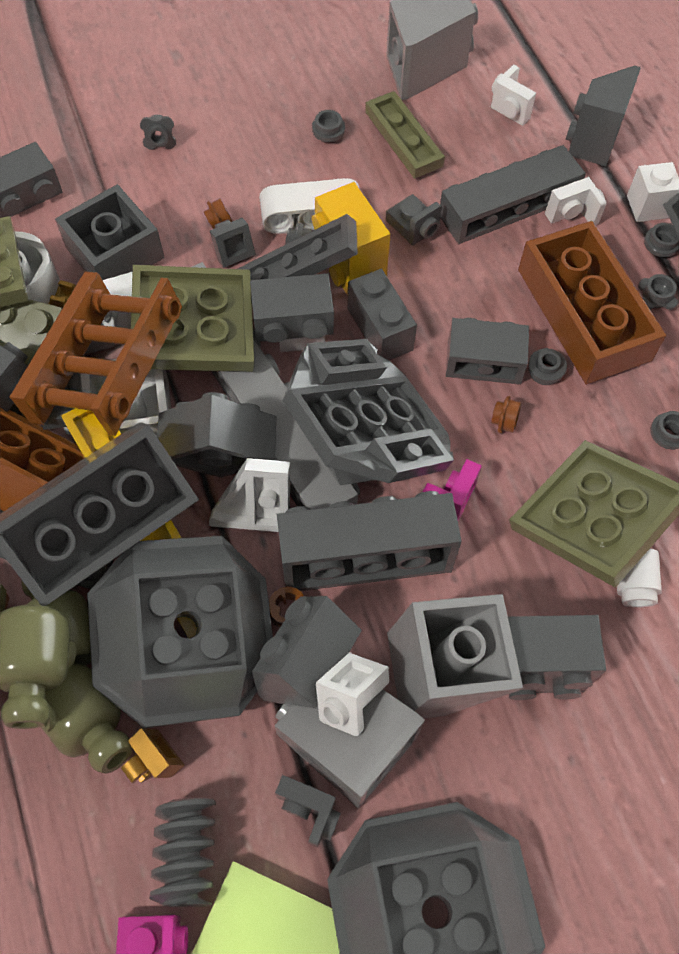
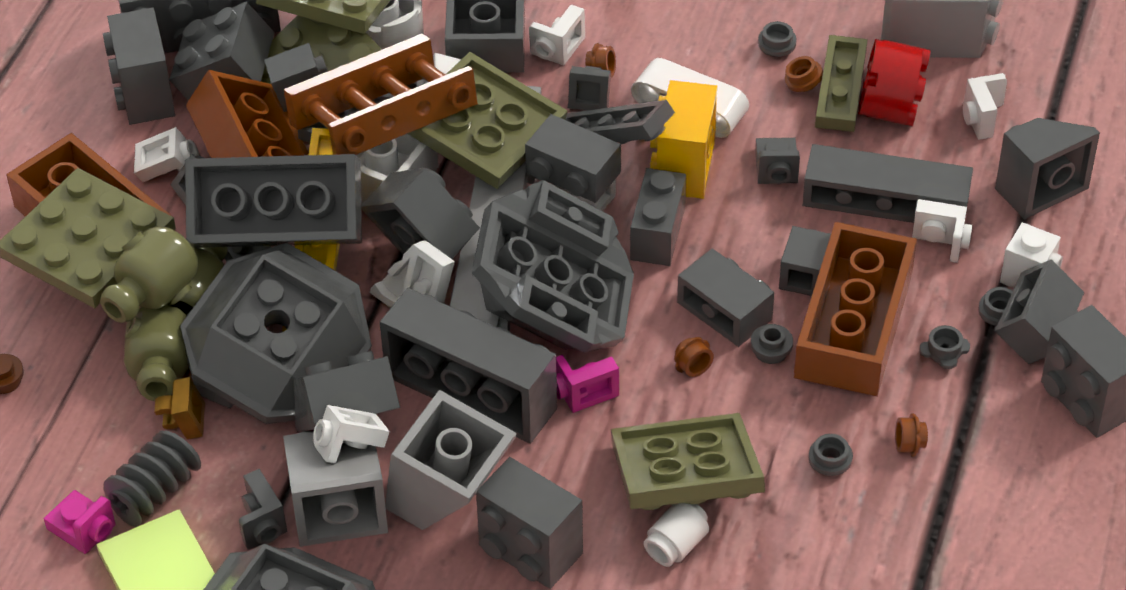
camera: 40 degrees right, 15 degrees down
(170, 217) = (561, 39): none -> white bracket
(369, 136) = (803, 74): none -> dark orange plate
(450, 109) = (894, 82): none -> red brick
(513, 285) = (802, 260): none -> dark grey brick

